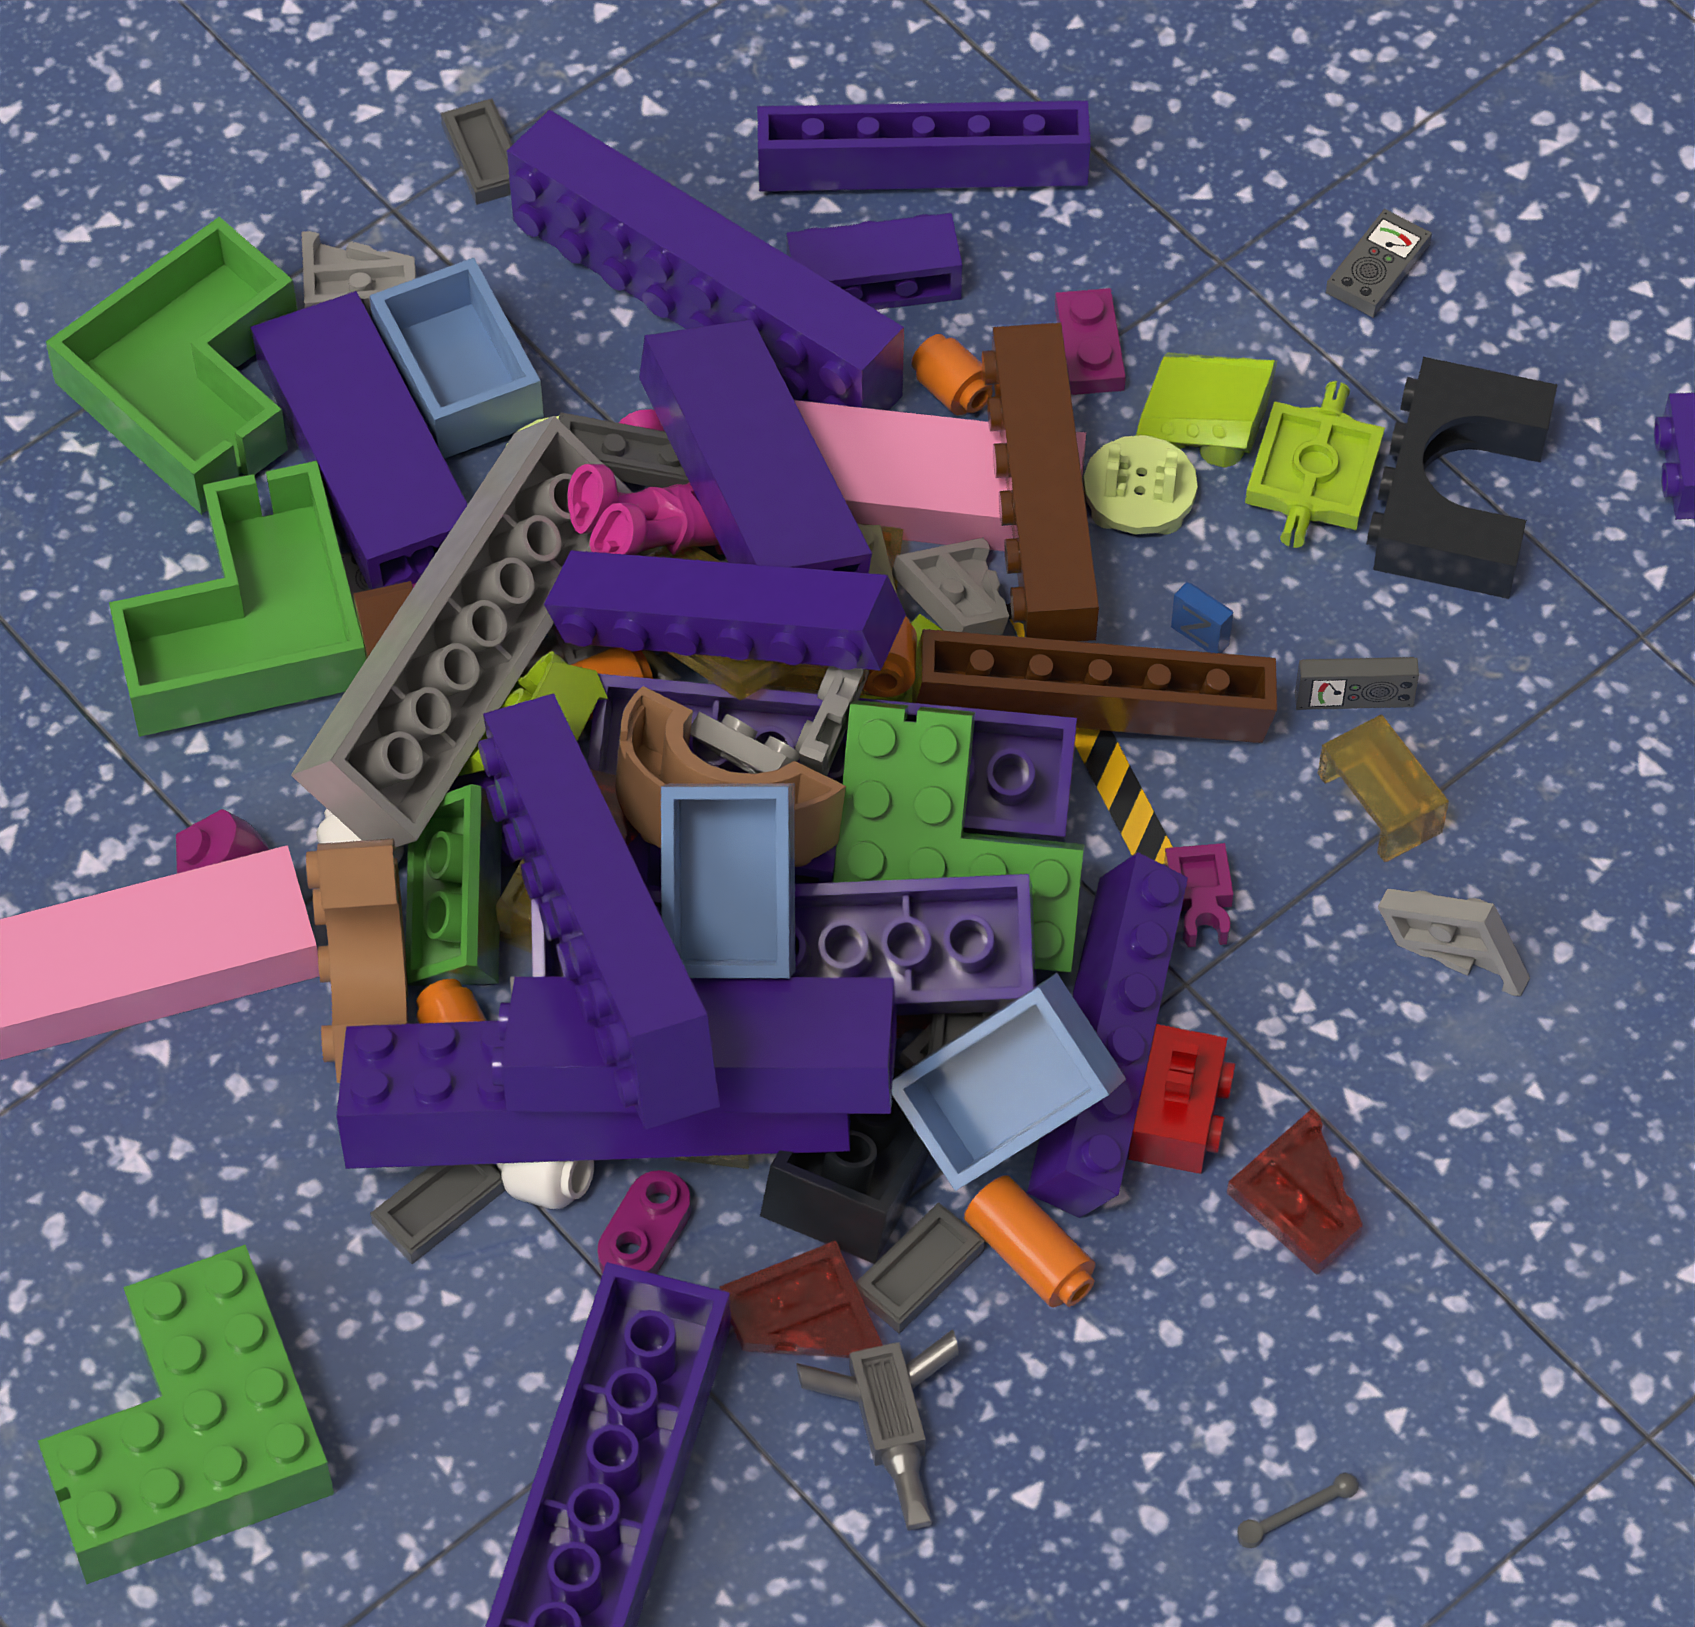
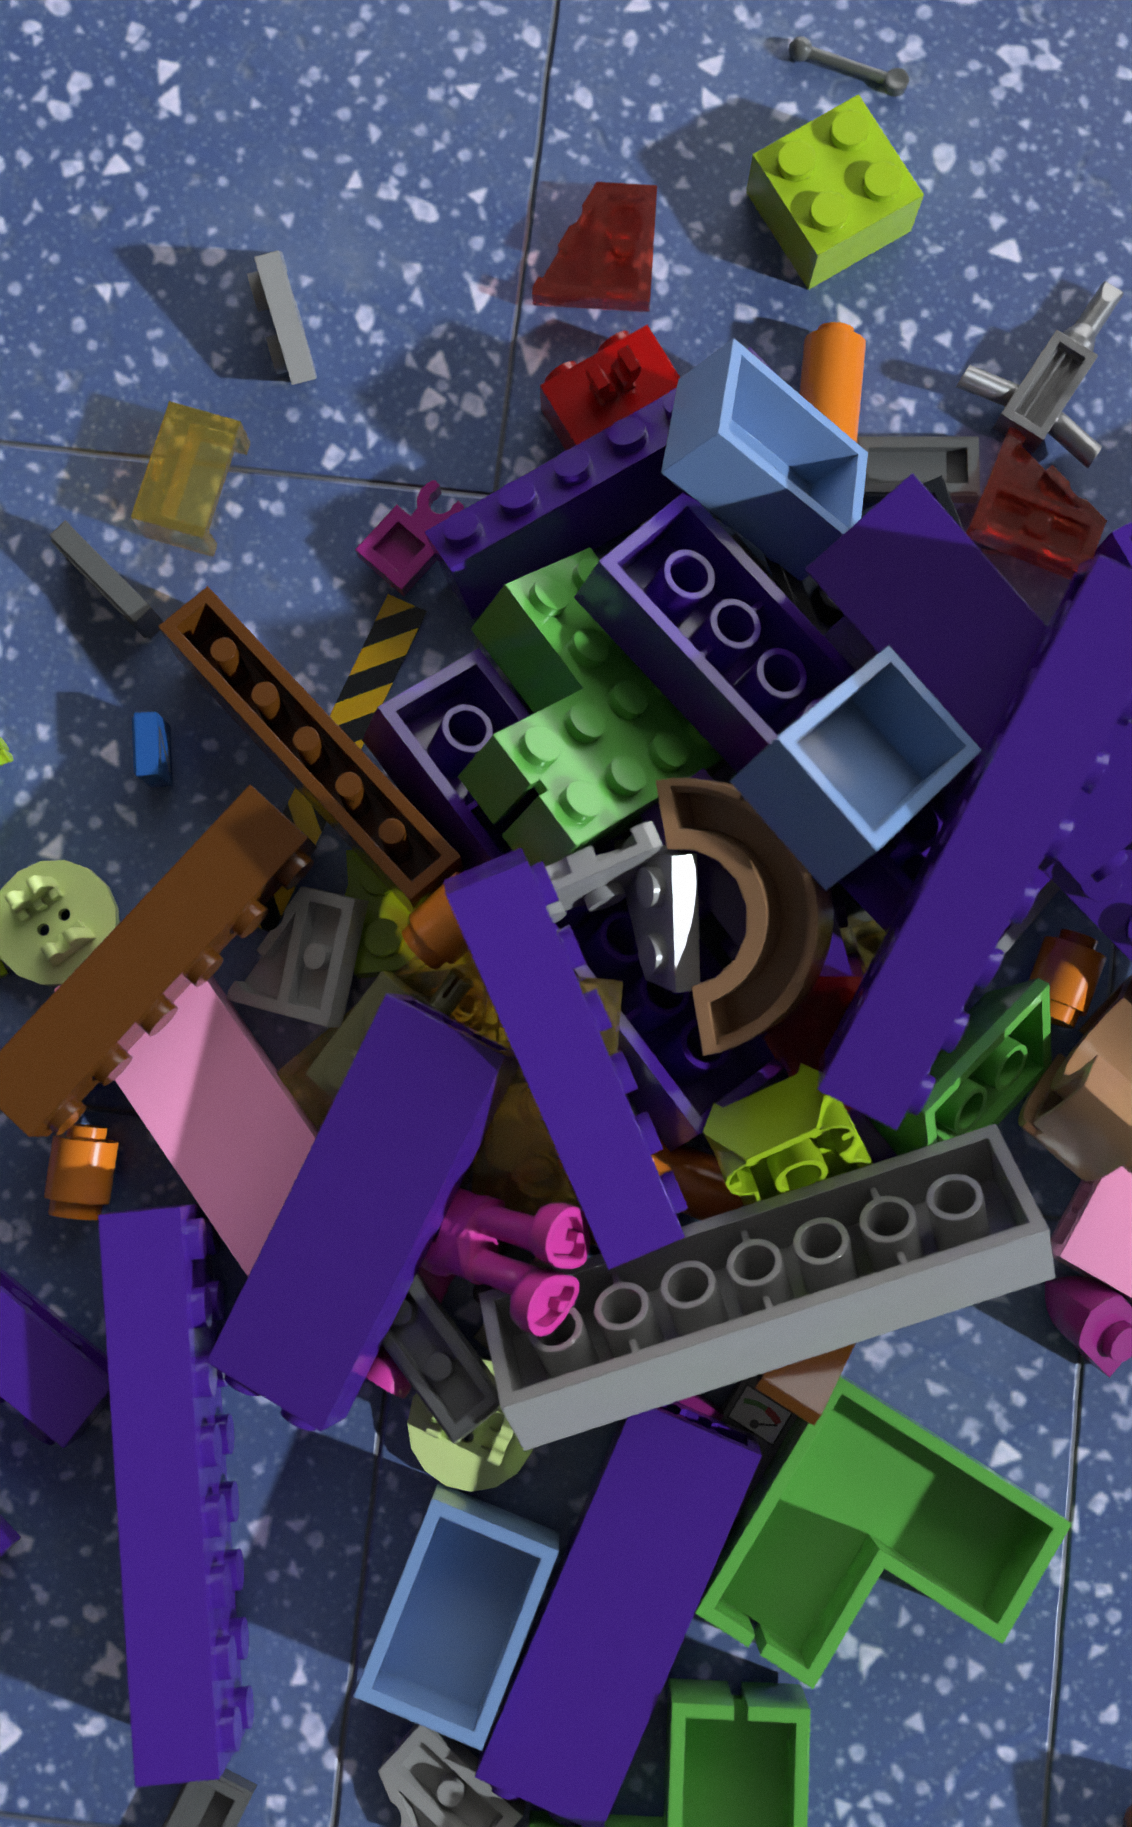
camera: 130 degrees left, 25 degrees up
(1191, 1379) = (833, 191): none -> lime brick

